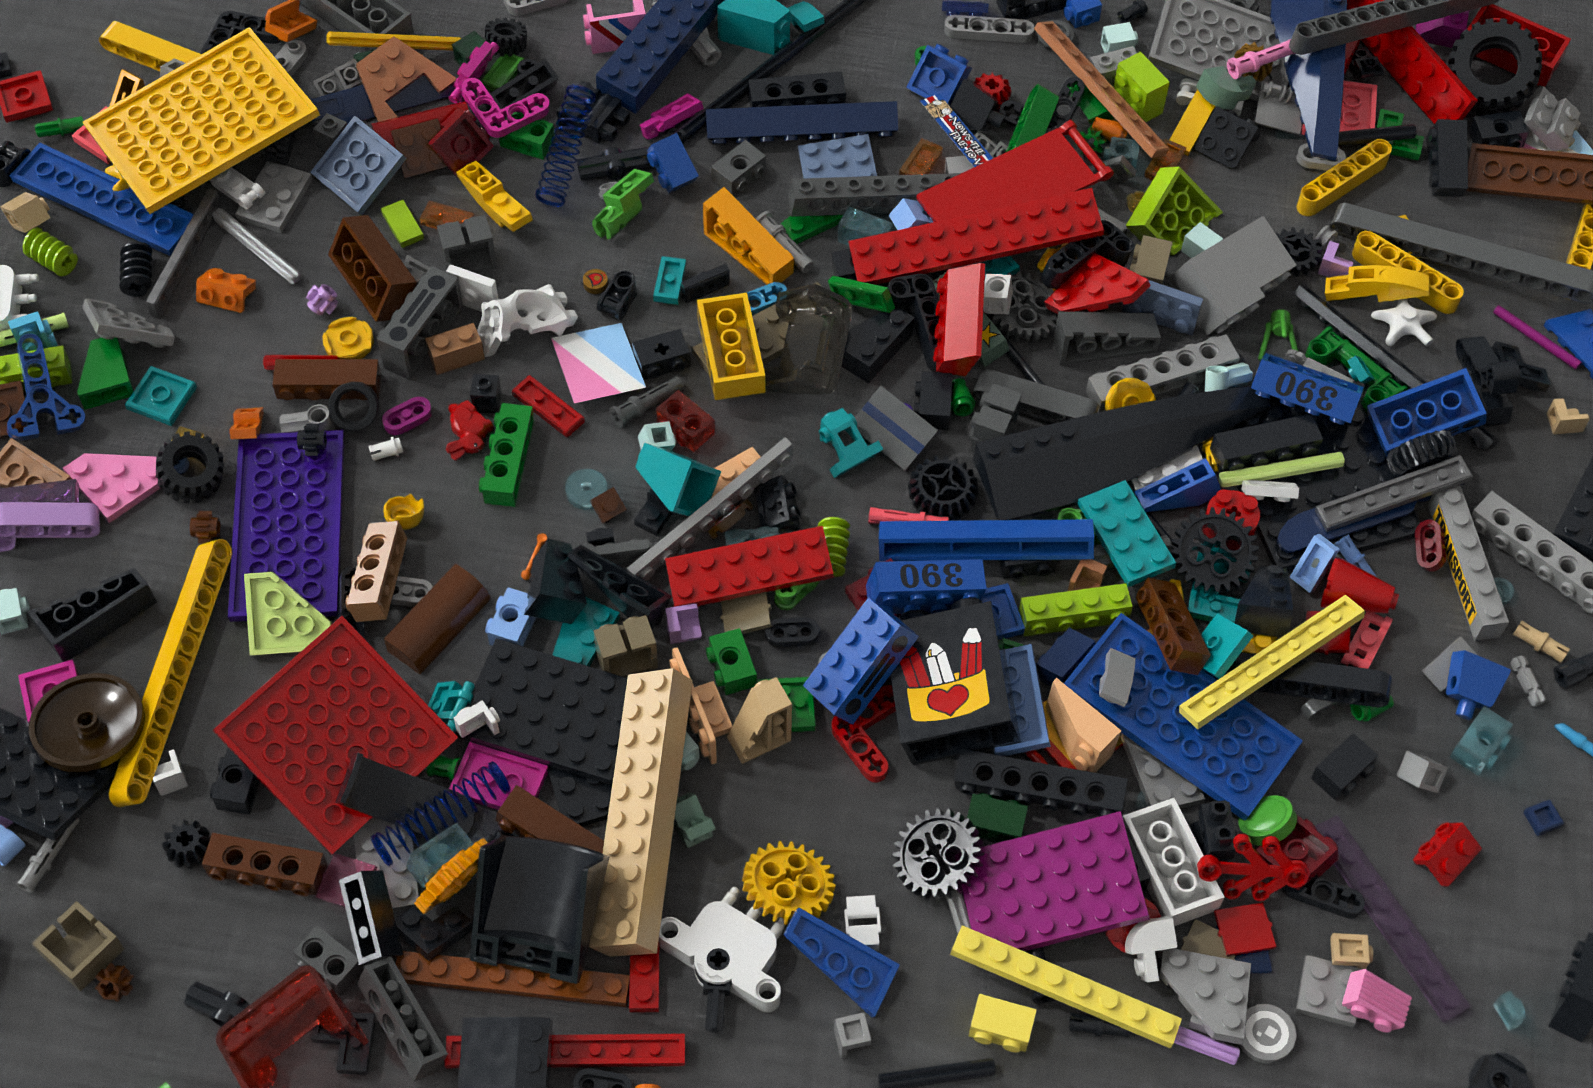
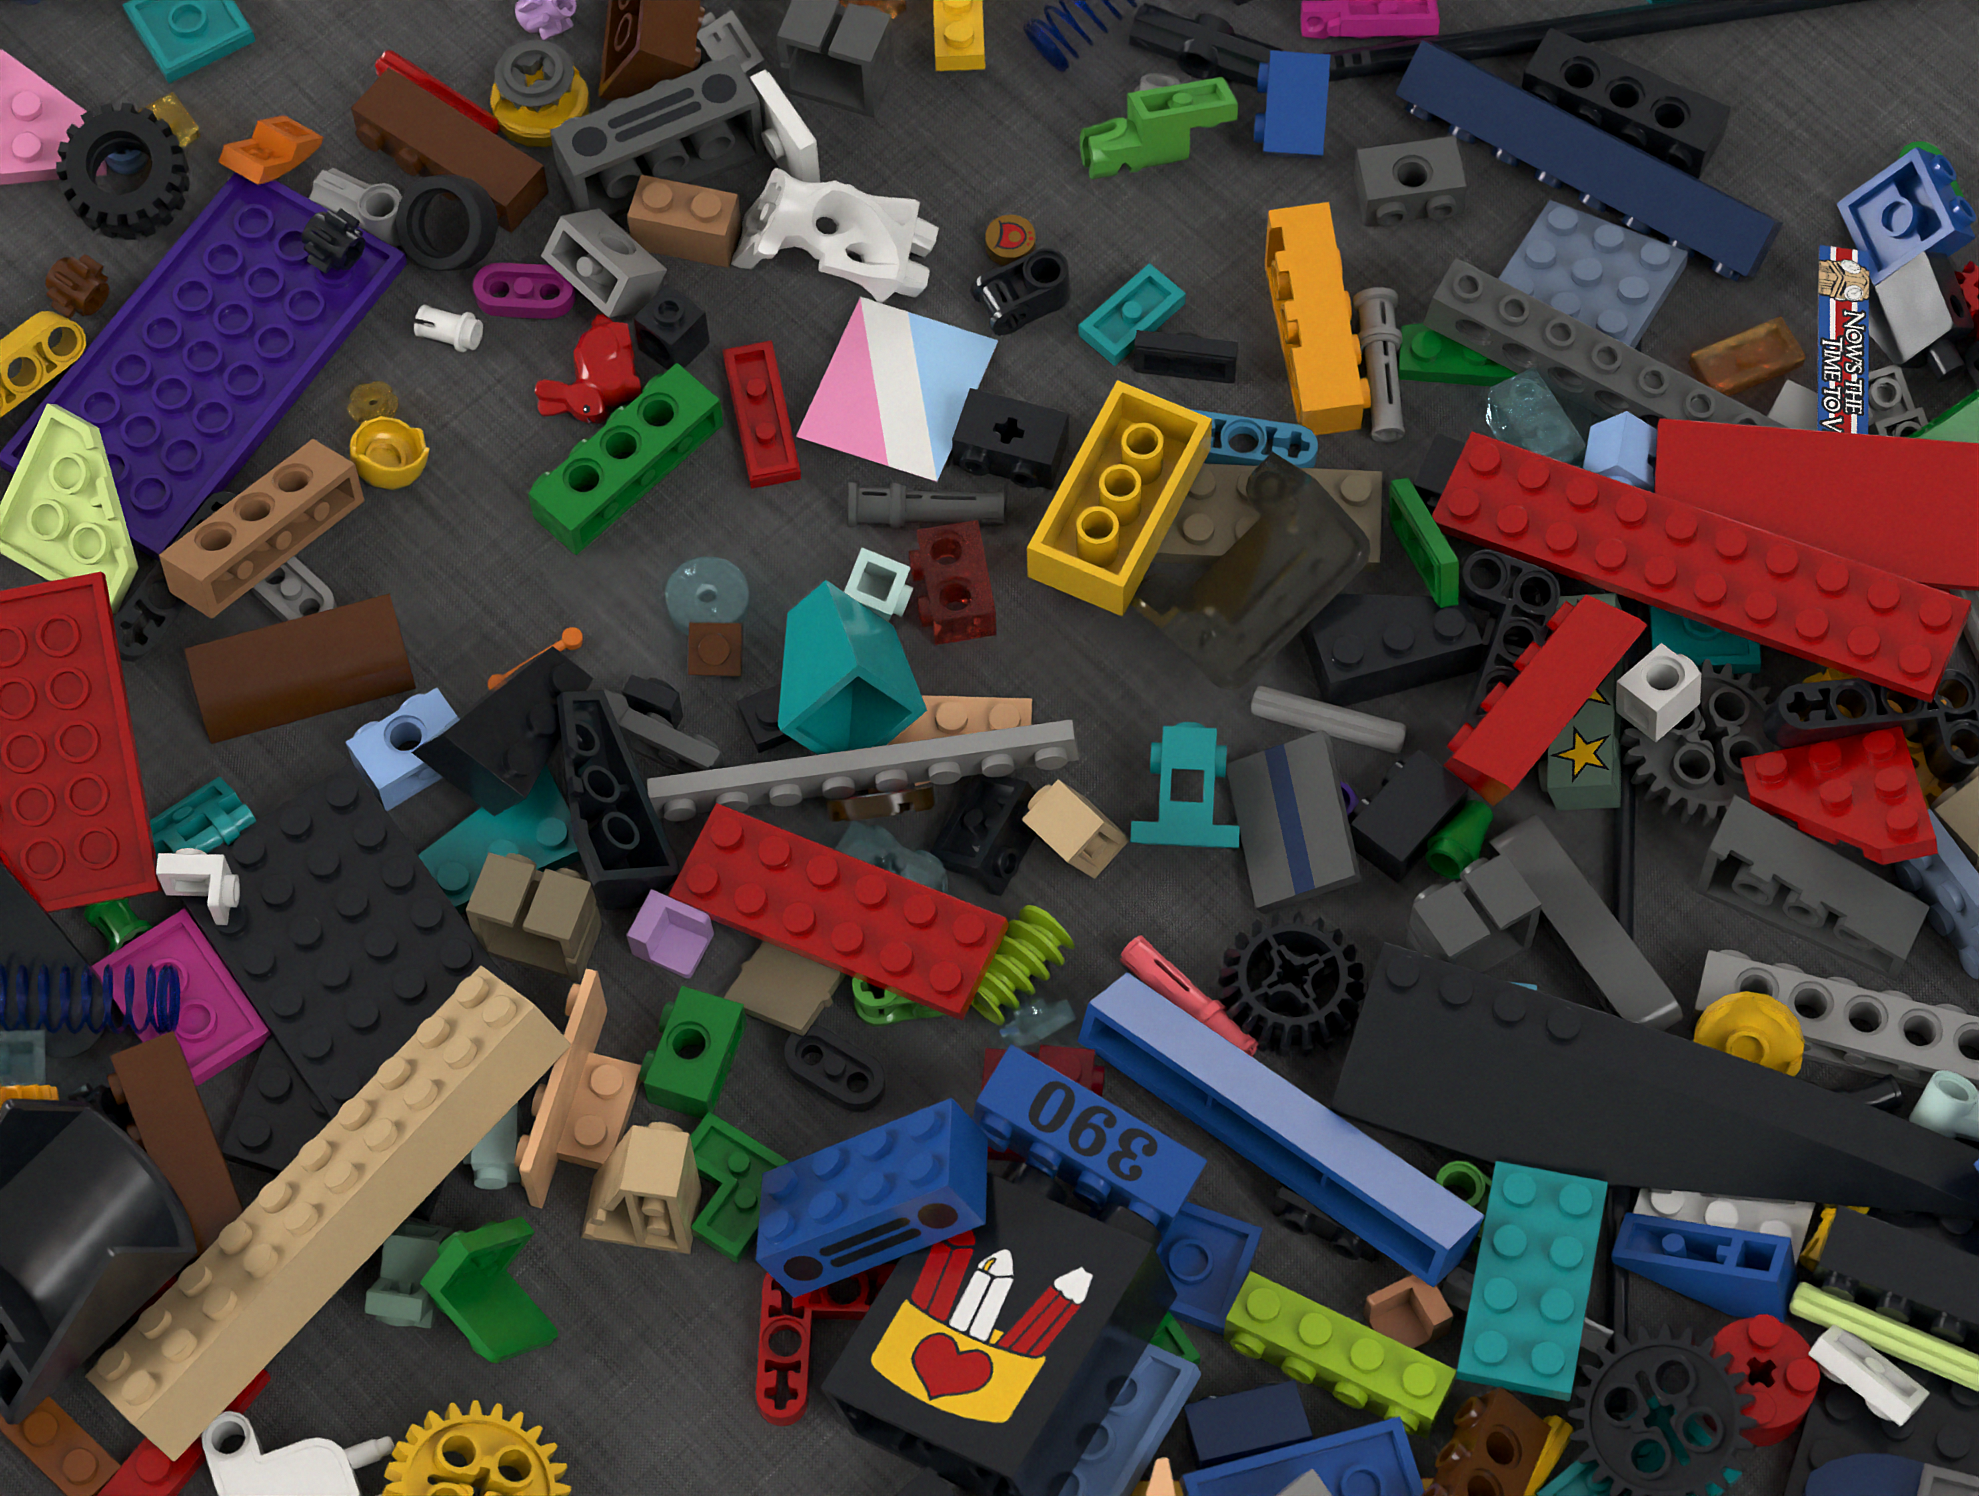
camera: 40 degrees right, 5 degrees up
(330, 327) = (527, 59): none -> dark grey gear
(377, 504) = (381, 392): none -> clear yellow plate
(435, 383) = (603, 262): none -> light grey brick
(724, 807) = (482, 1297): none -> green bracket
(815, 479) = (1074, 828): none -> tan brick
(858, 563) = (1036, 1021): none -> clear light blue plate
(872, 384) = (1333, 719): none -> light grey axle

